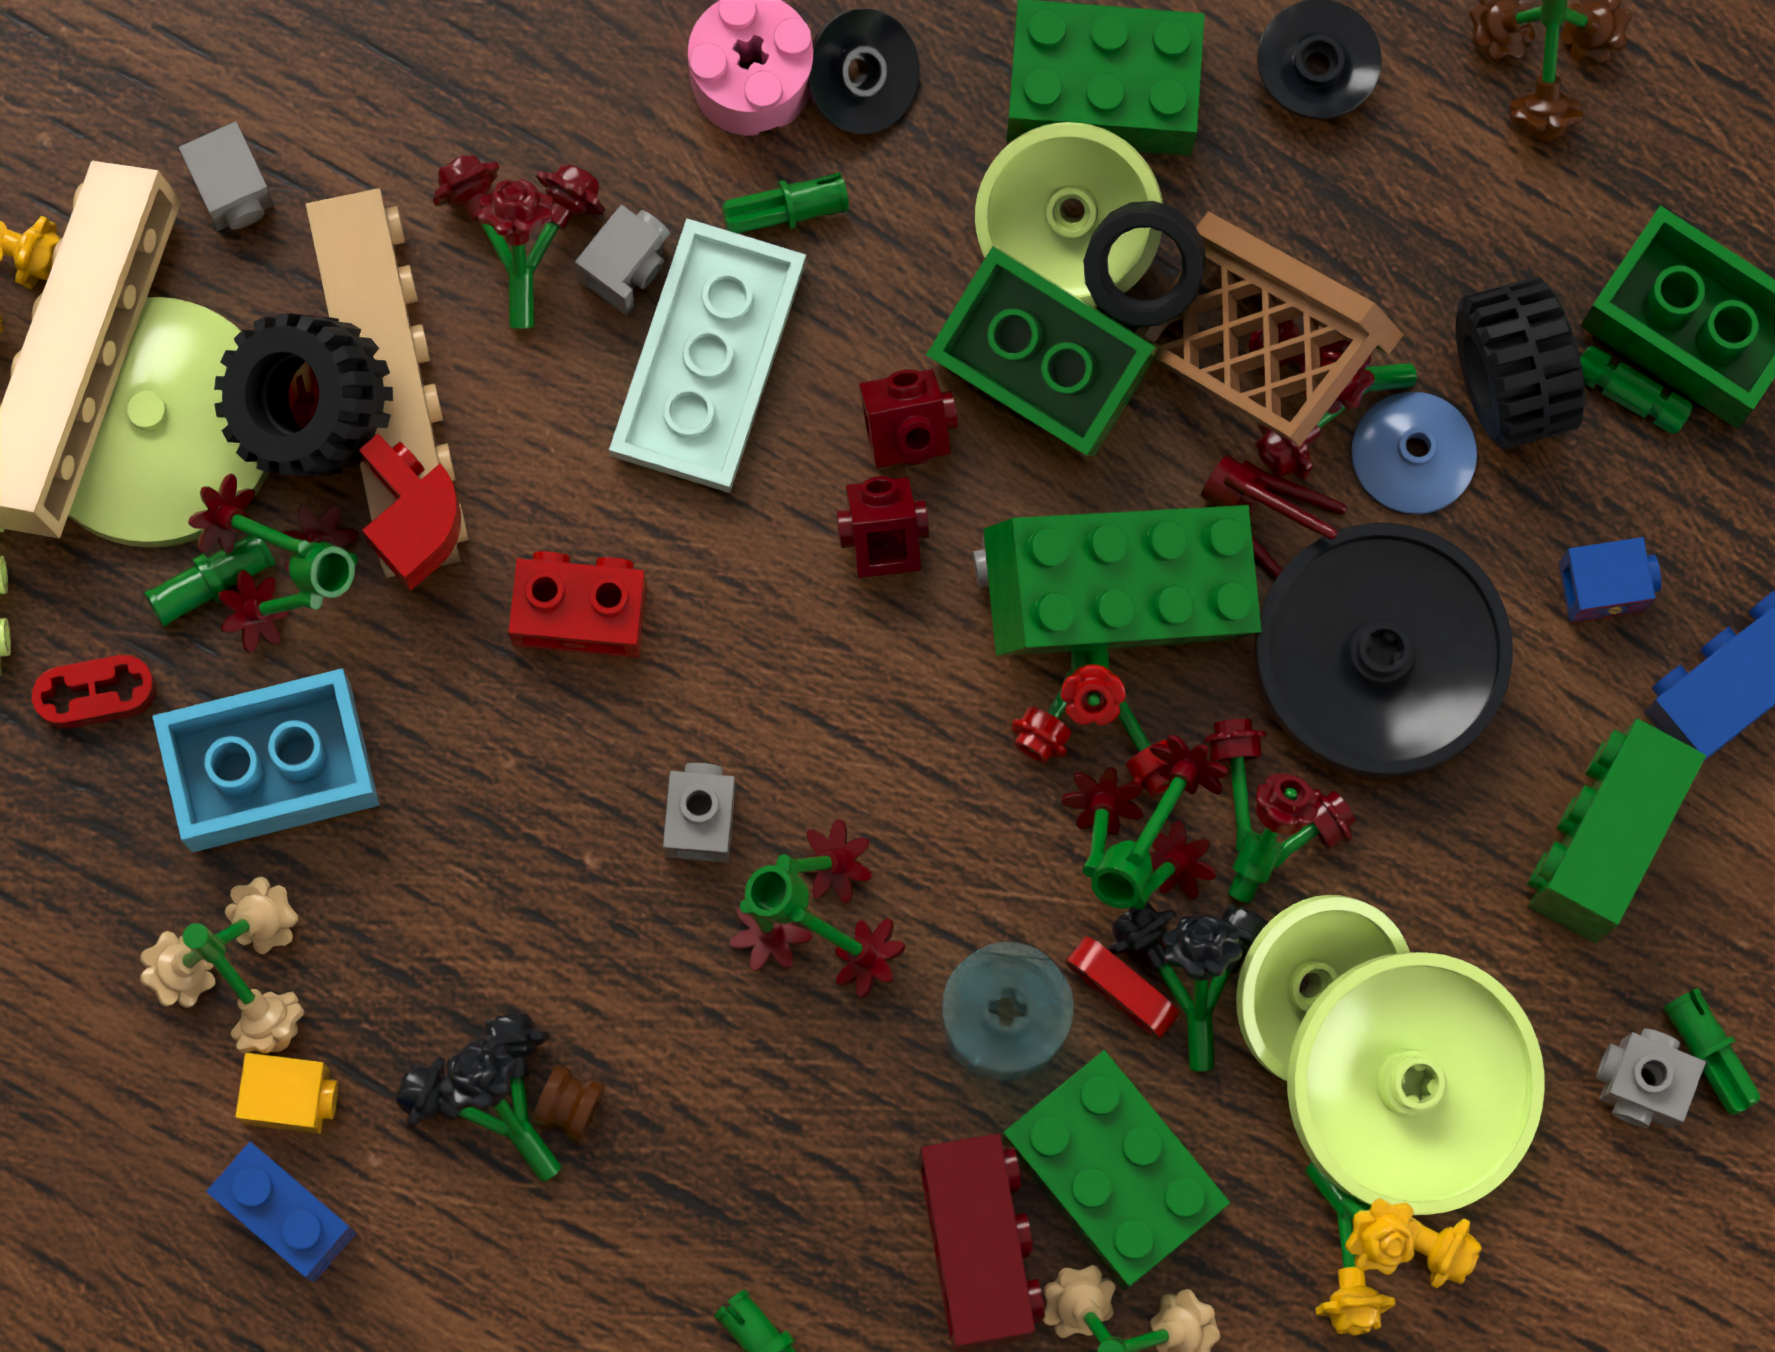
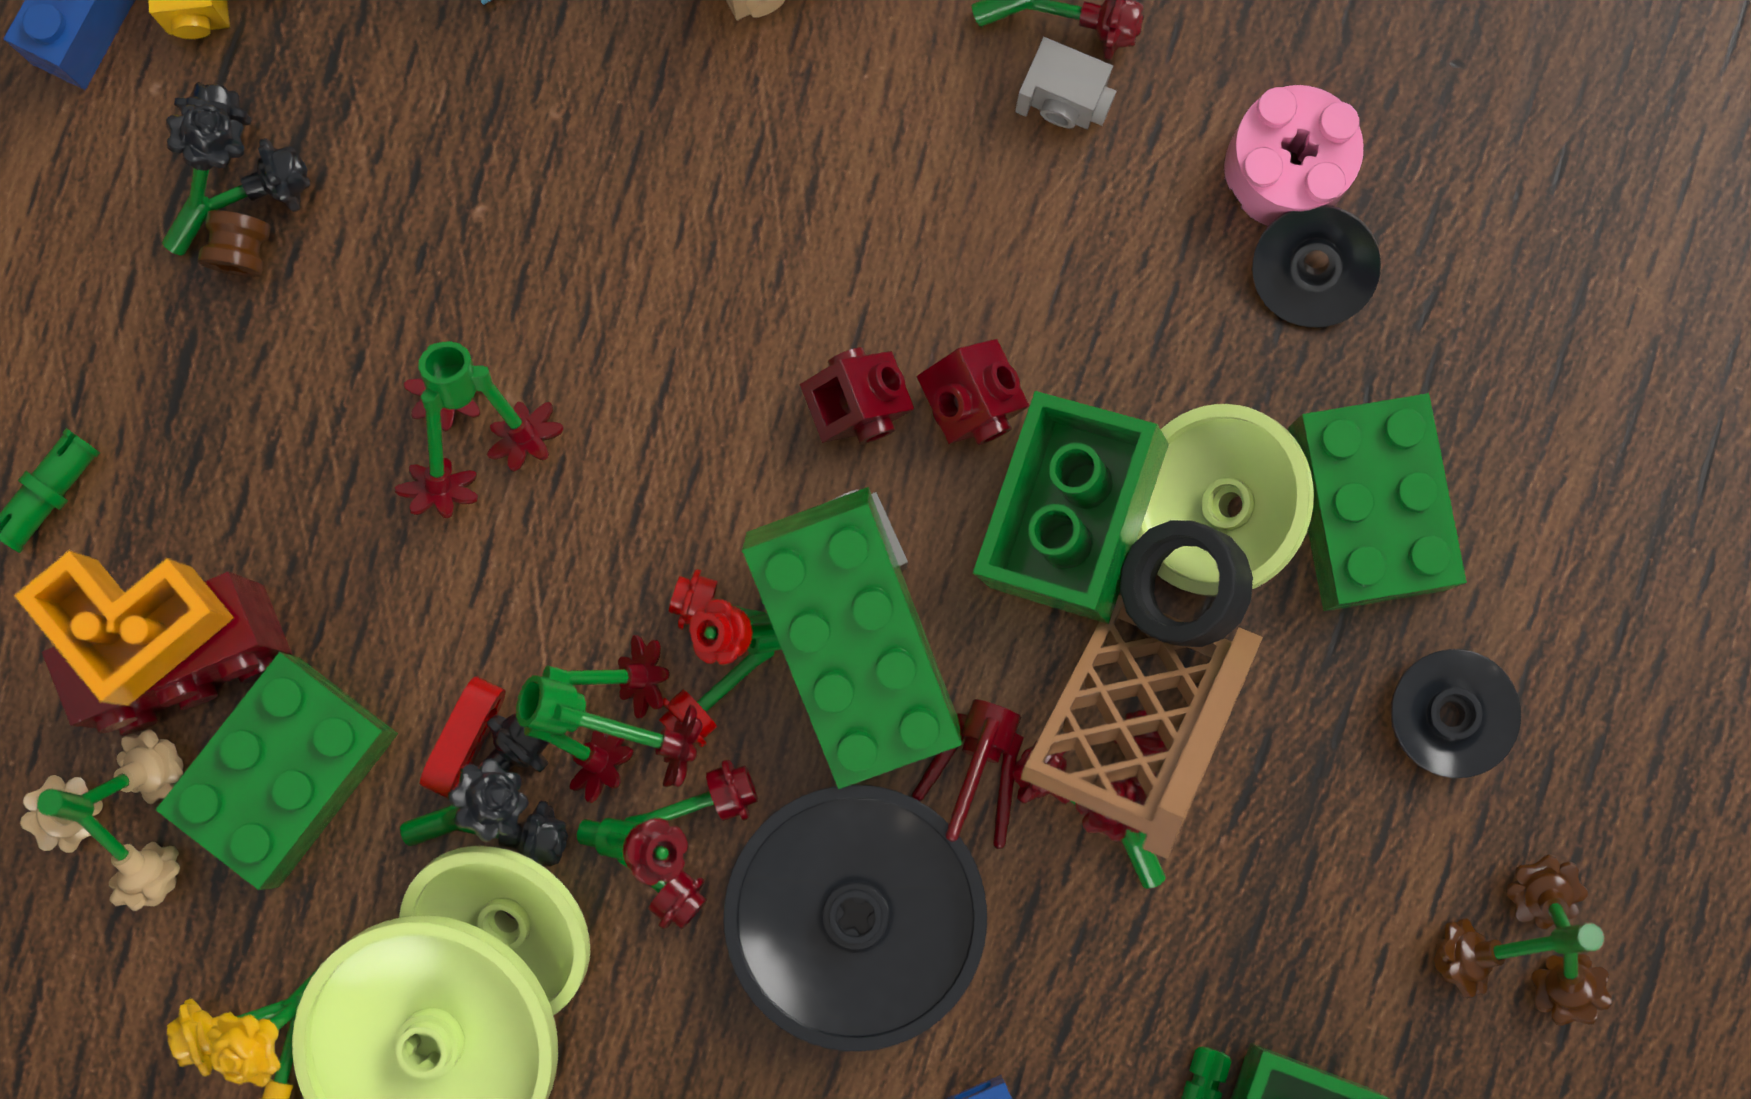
camera: 80 degrees right, 5 degrees up
(578, 605) = (710, 131): red brick -> none
(699, 813) = (537, 295): light grey brick -> none
(707, 355) = (992, 192): light aqua plate -> none
(787, 204) = (1162, 229): green axle -> none
(975, 1238) = (120, 638): none -> light orange brick
(1036, 990) = (379, 605): clear light blue brick -> none
(1410, 482) = (1042, 895): medium blue dish -> none
(1520, 362) = (1184, 990): black tyre -> none

